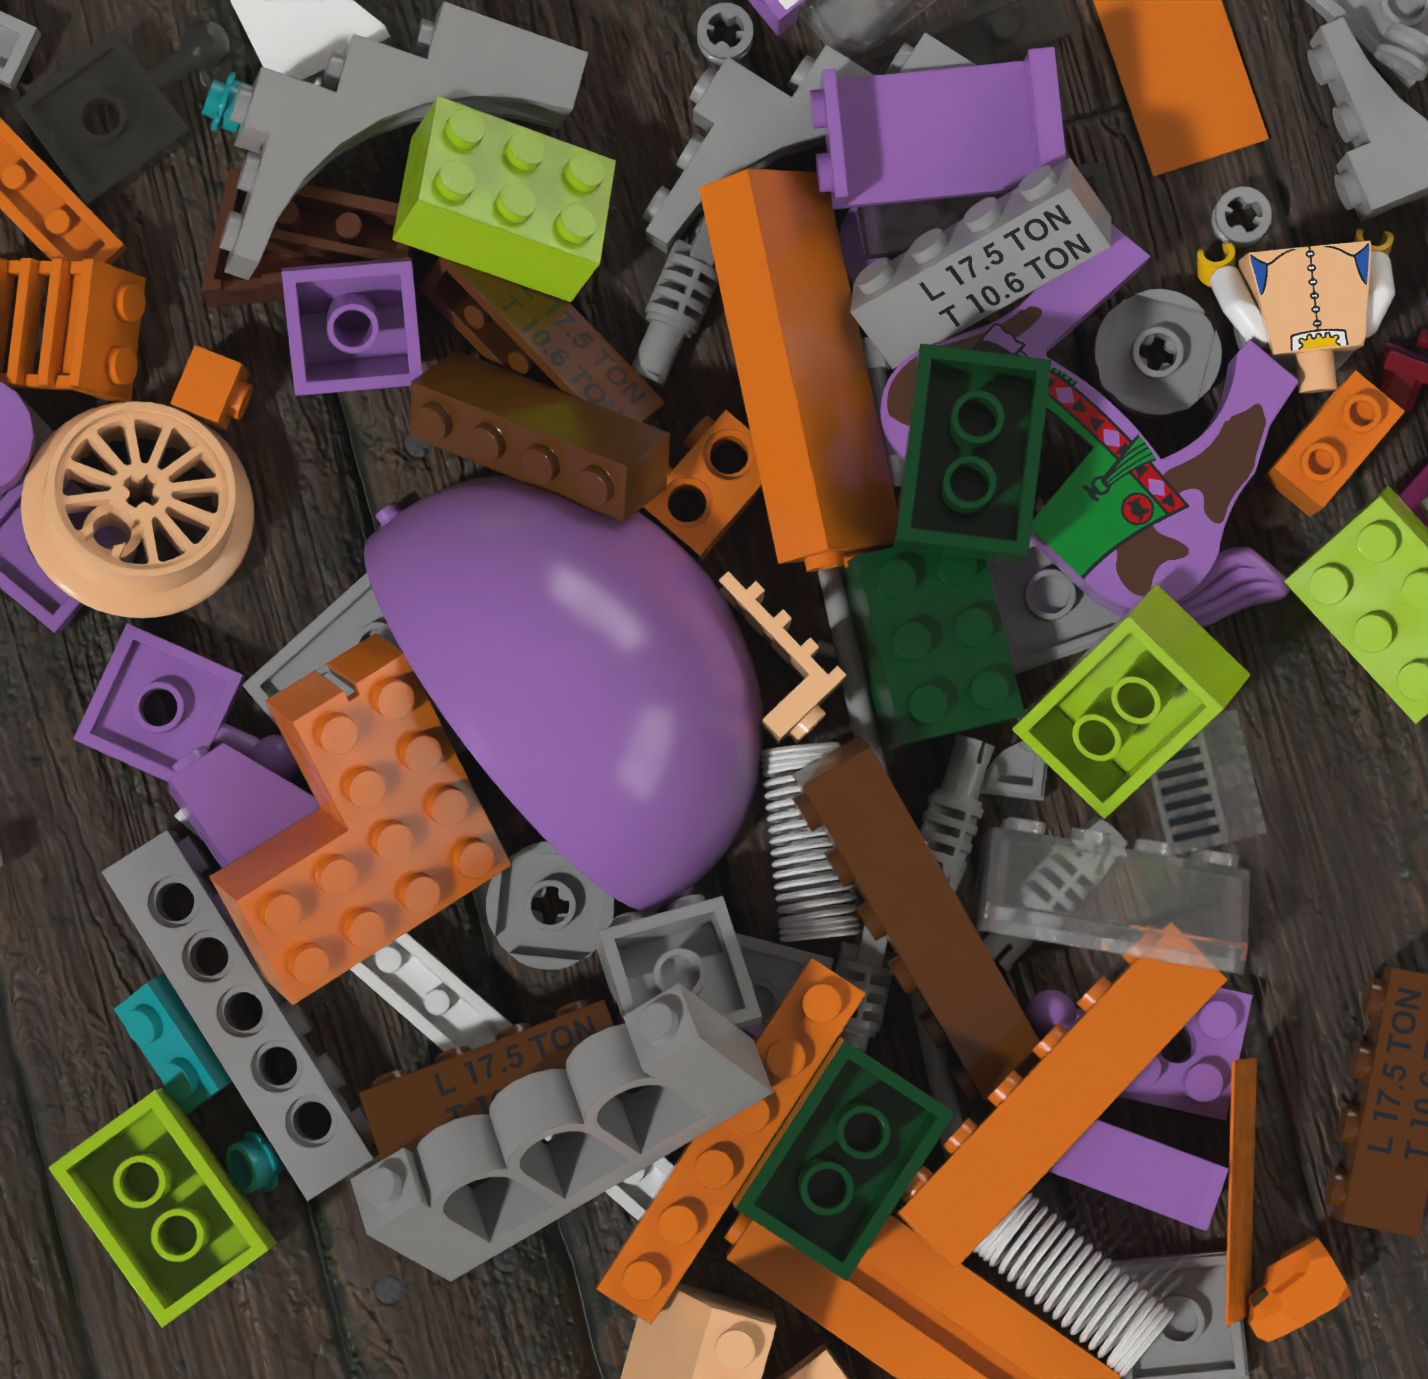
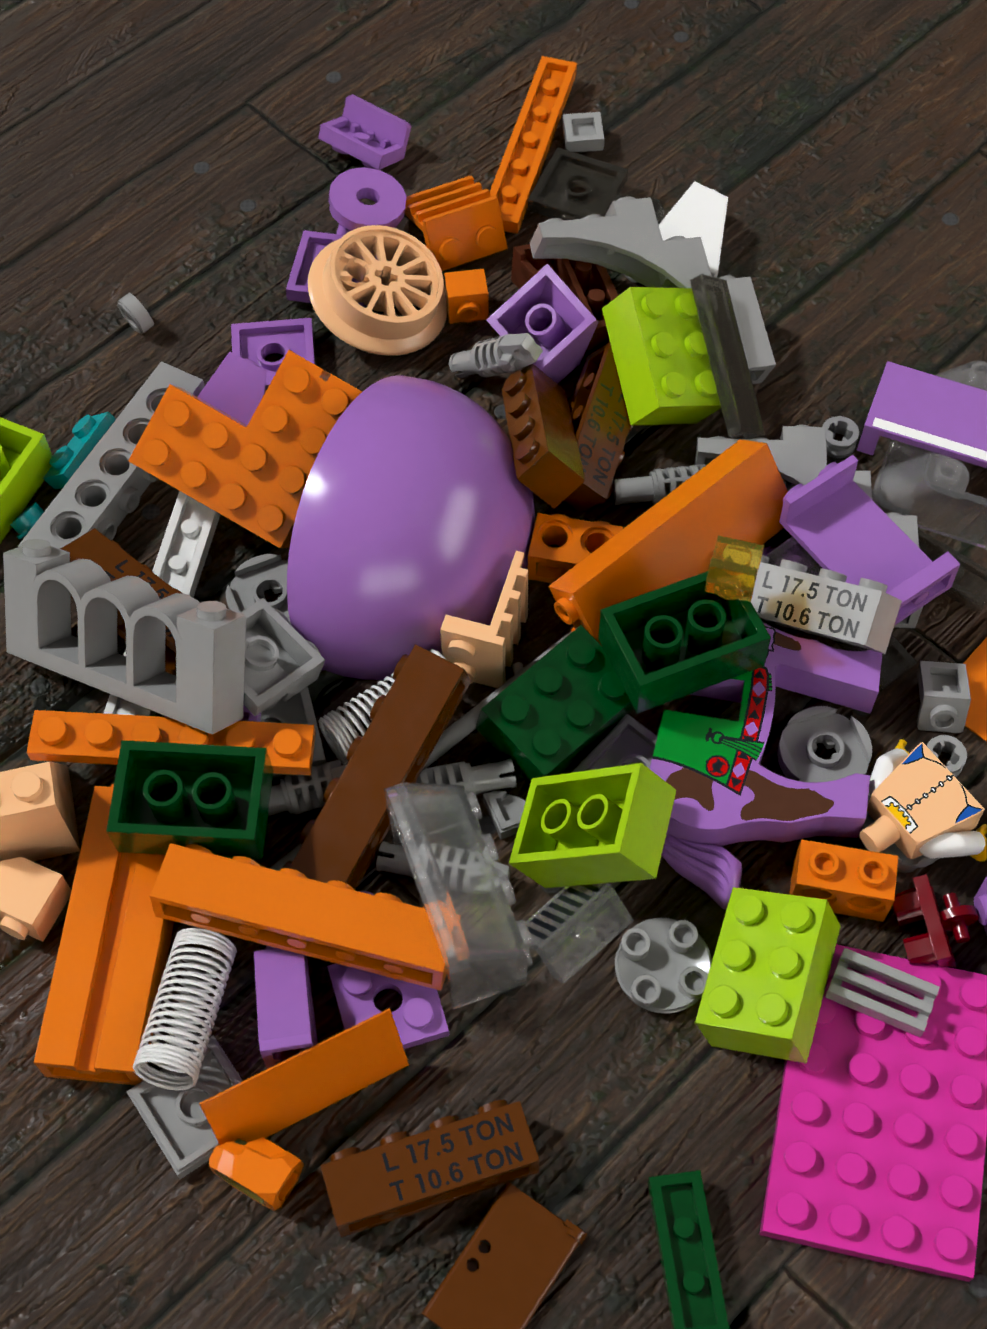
camera: 65 degrees right, 25 degrees down
(364, 419) = (496, 356): none -> light grey hinge
(562, 120) = (727, 357): none -> clear smoke tile
(941, 347) = (734, 568): none -> clear yellow bracket
(1166, 163) = (943, 696): none -> light grey bracket
(1309, 708) = (663, 965): none -> light grey dish

